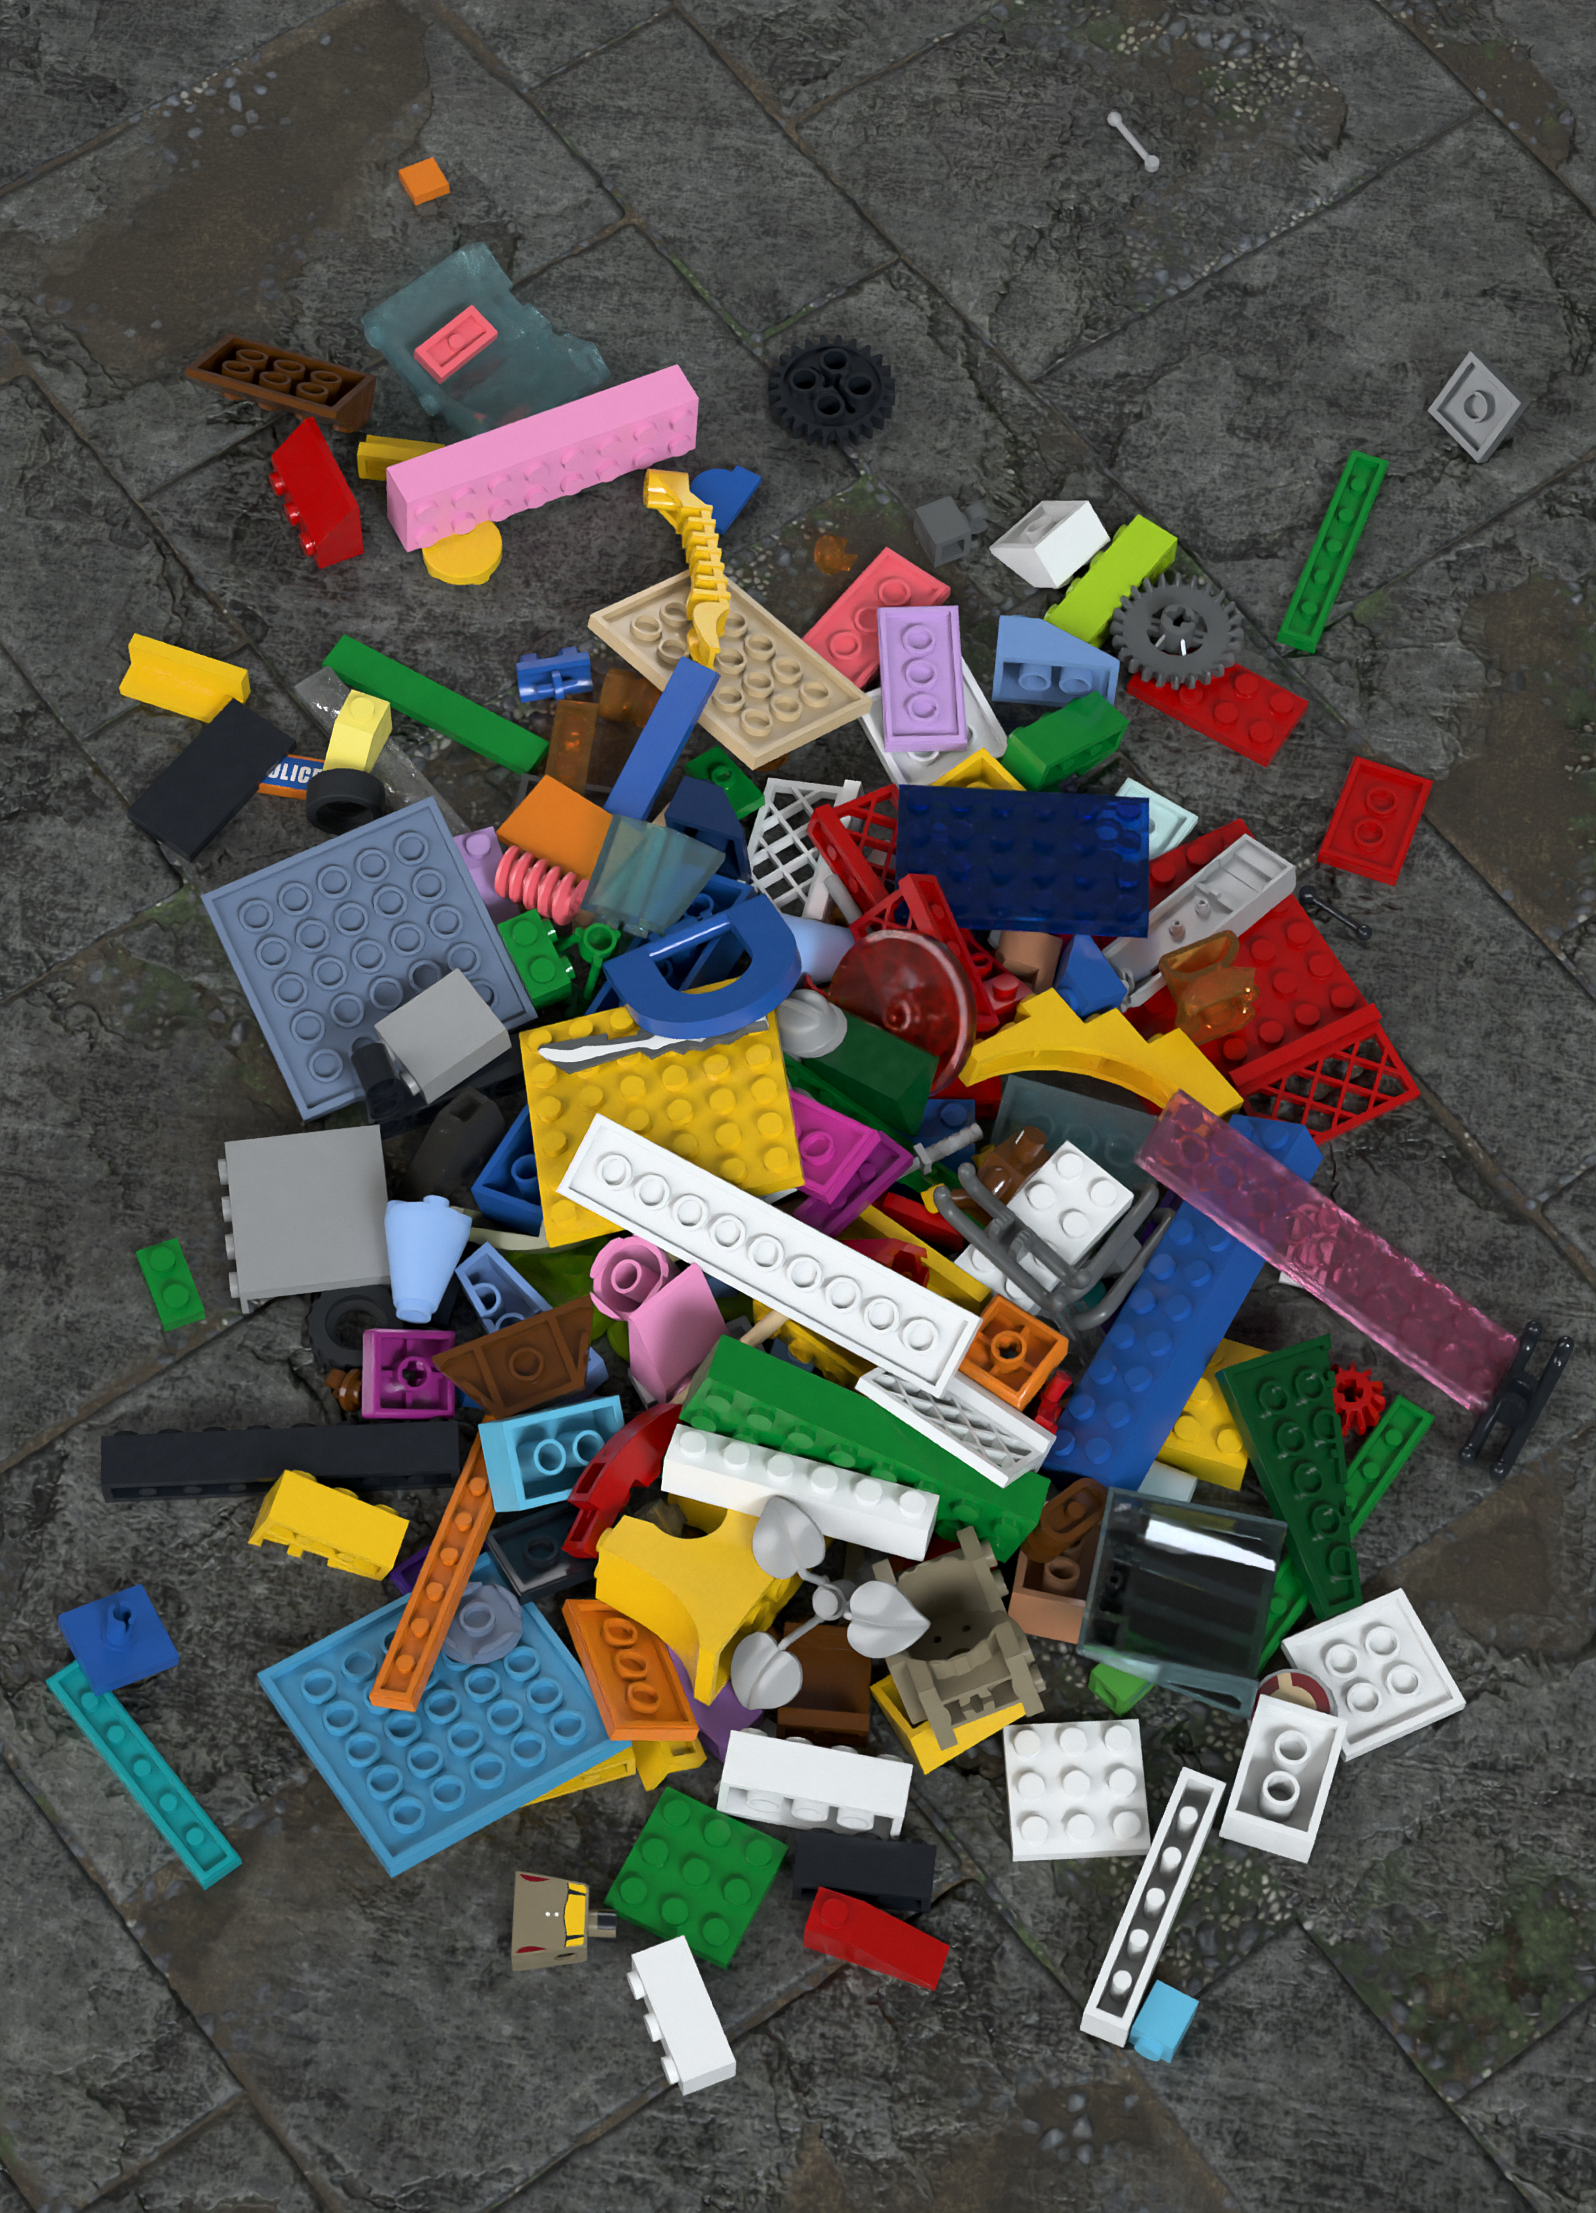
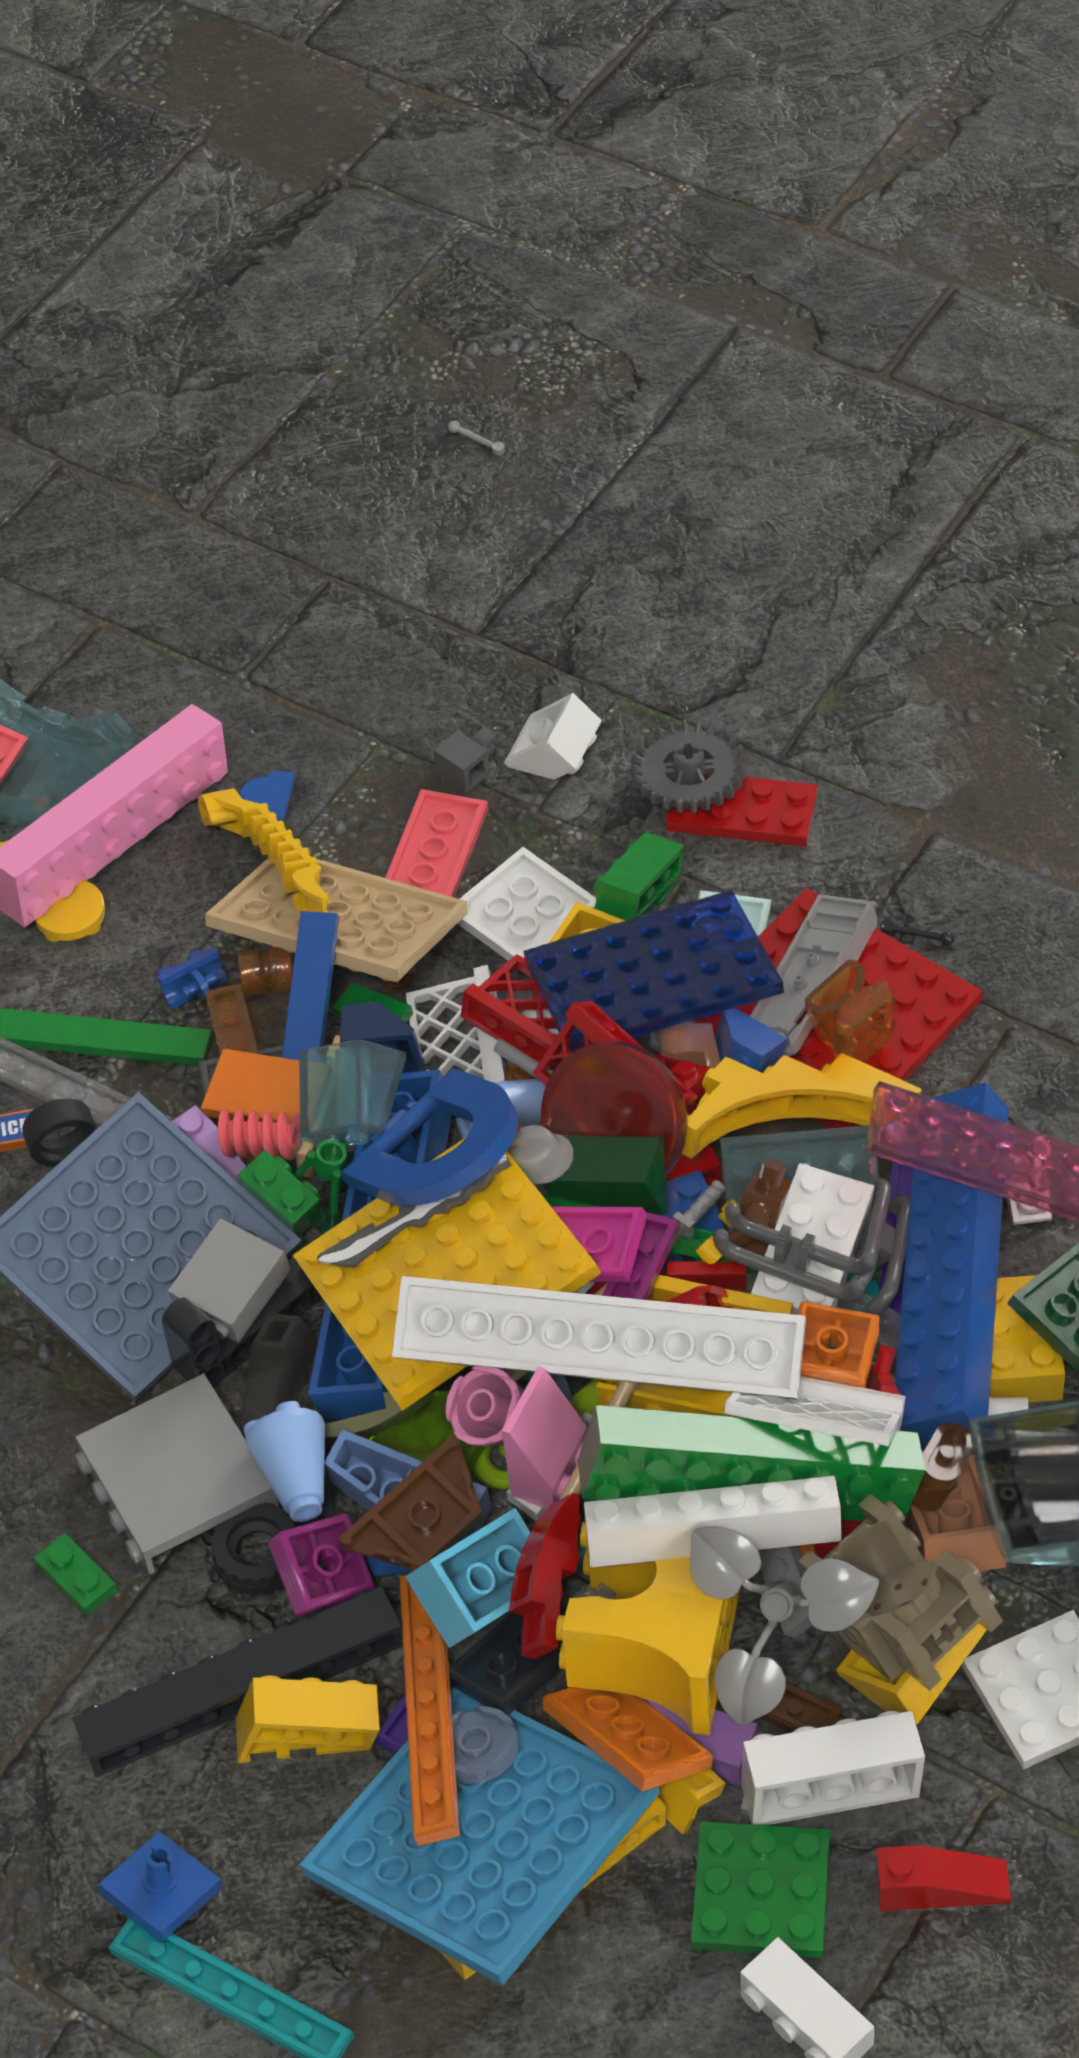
camera: 15 degrees left, 10 degrees down
(346, 1388) = (270, 1598): reddish brown plate -> none
(359, 733) = (48, 1070): light yellow slope -> none
(554, 1922) = (656, 1973): dark tan torso -> none
(809, 388) = (322, 691): black gear -> none
(831, 556) = (379, 809): clear orange plate -> none
(834, 1689) = (812, 1684): reddish brown panel -> none
(865, 1868) = (924, 1816): black brick -> none
(921, 679) = (498, 873): lavender tile -> none
(1048, 665) = (597, 825): medium blue slope -> none
(1117, 1688) = (1043, 1587): bright green brick -> none
(1135, 553) = (608, 773): lime brick -> none
(1313, 1050) = (965, 1026): red fence -> none
(1332, 551) = (780, 673): green tile -> none
(1375, 821) = (913, 854): red tile -> none
(1478, 406) = (844, 527): tile -> none

